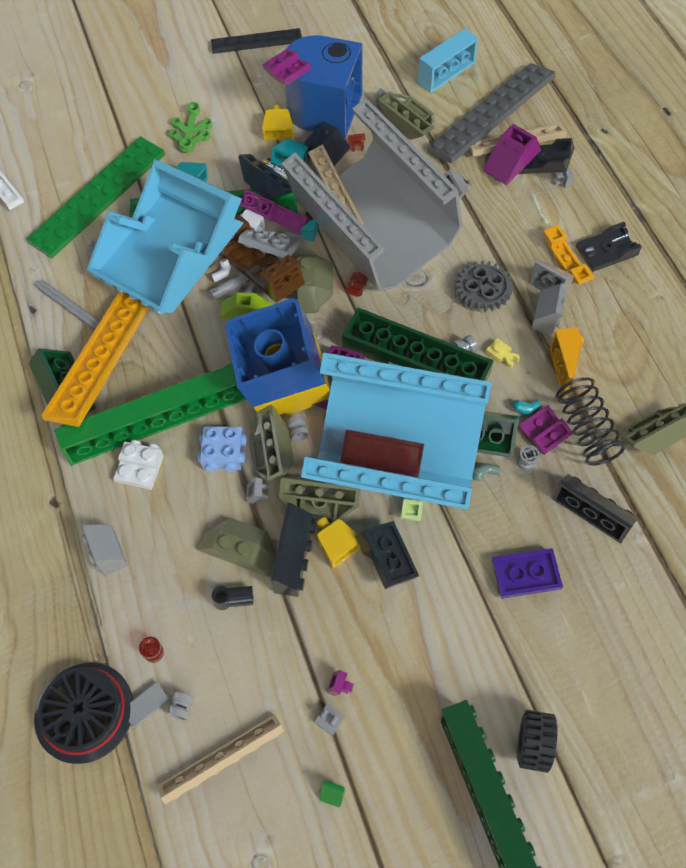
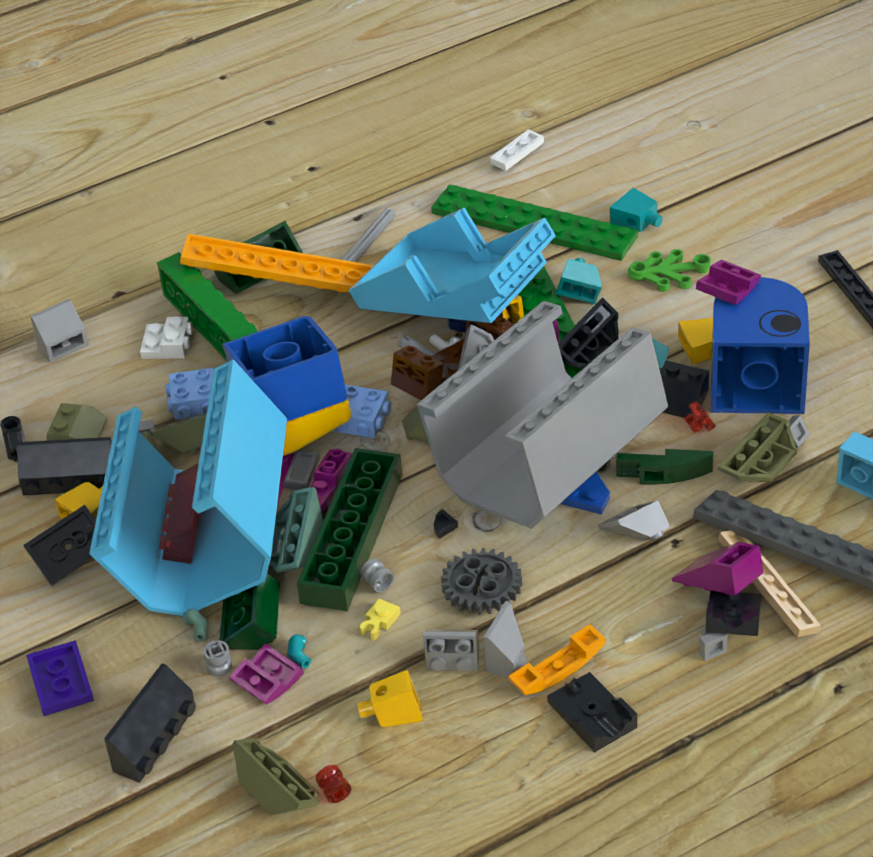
camera: 80 degrees right, 20 degrees down
(119, 132) = (635, 211): none -> teal torso
(241, 304) = (384, 364): lime slope -> none
(416, 302) = (444, 524): none -> black tile
(565, 354) = (356, 668): light orange slope -> none
(572, 400) = (307, 671): black piece -> none
(594, 349) = (392, 701): none -> yellow torso
(659, 397) = (332, 782): none -> clear red wheel

